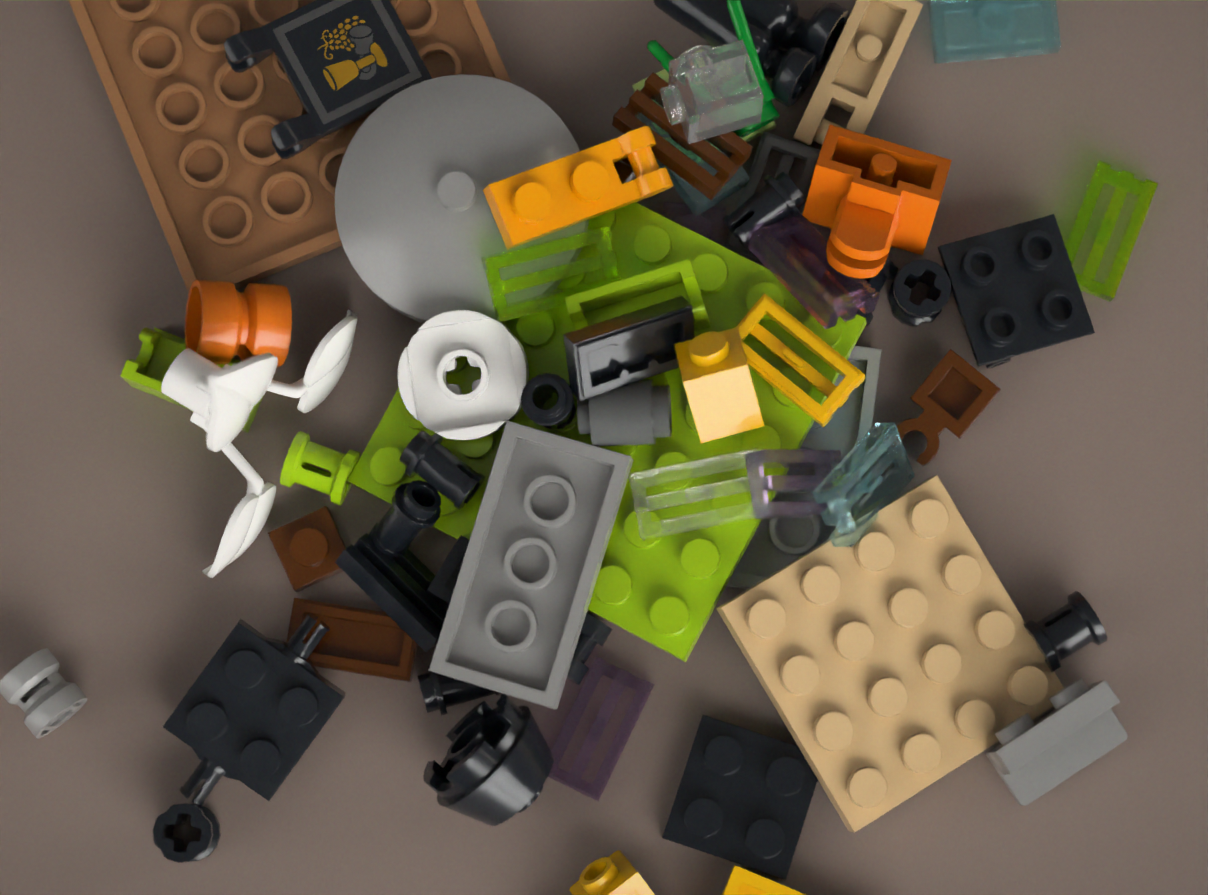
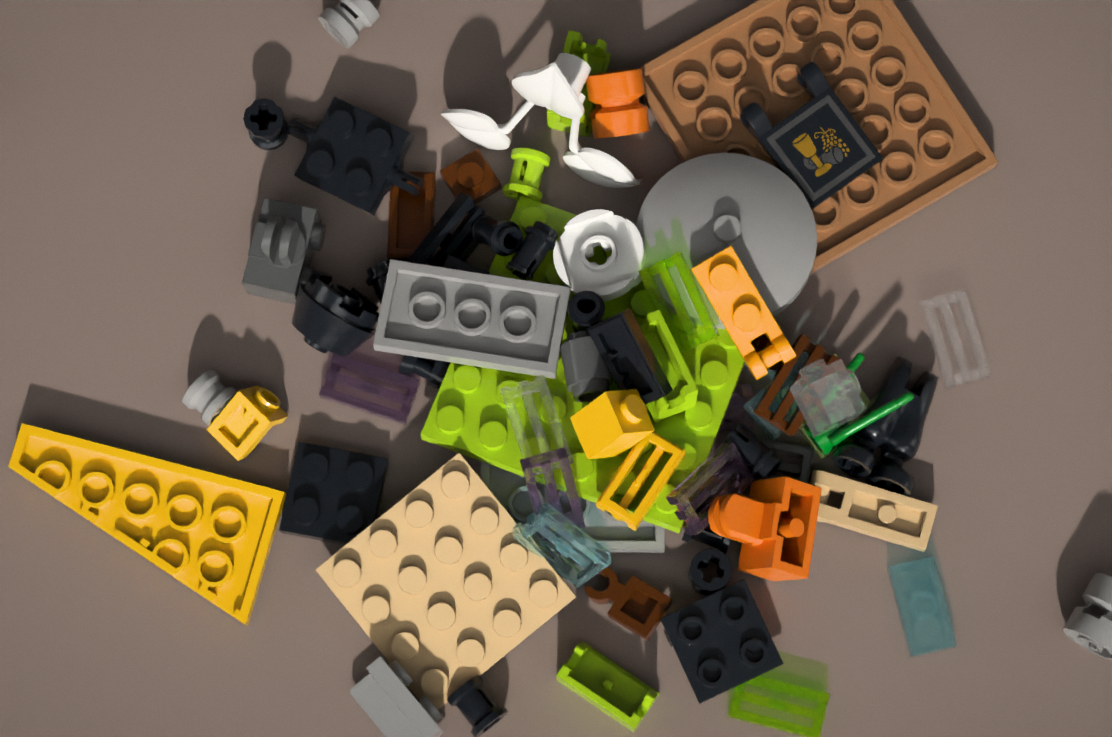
camera: 85 degrees right, 5 degrees down
(381, 828) = (282, 250): none -> dark grey brick
(1056, 452) = (607, 686): none -> lime hinge

